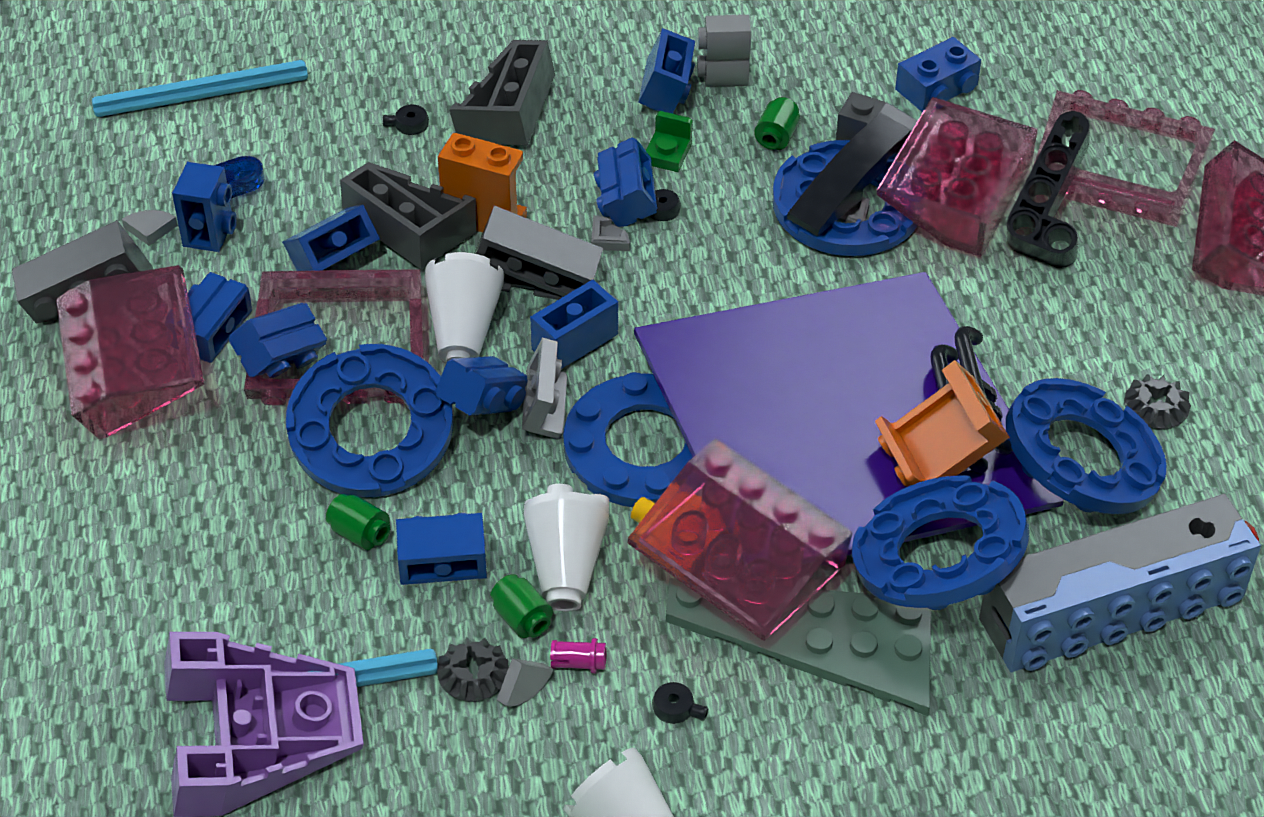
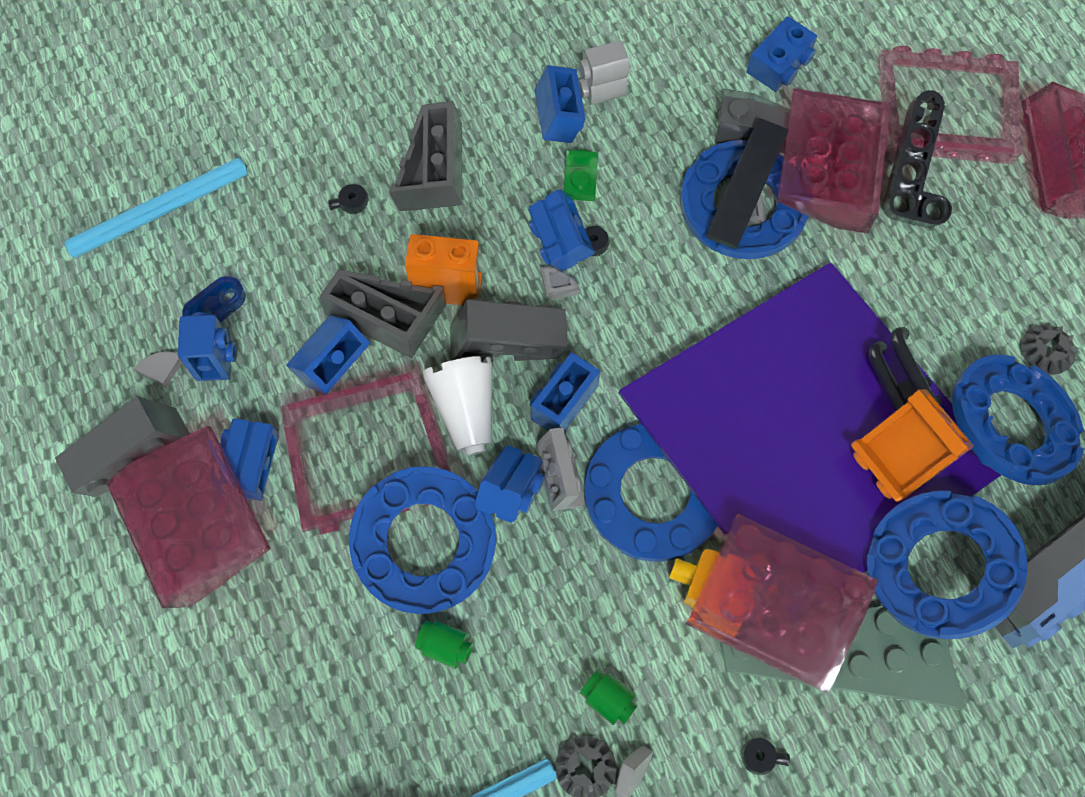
camera: 15 degrees left, 20 degrees up
(278, 340) = (318, 480): blue brick -> none
(441, 548) = (523, 654): blue brick -> none
(565, 542) = (629, 630): white cone -> none
(579, 655) = (670, 731): dark pink pin -> none
(777, 123) = (665, 135): green brick -> none

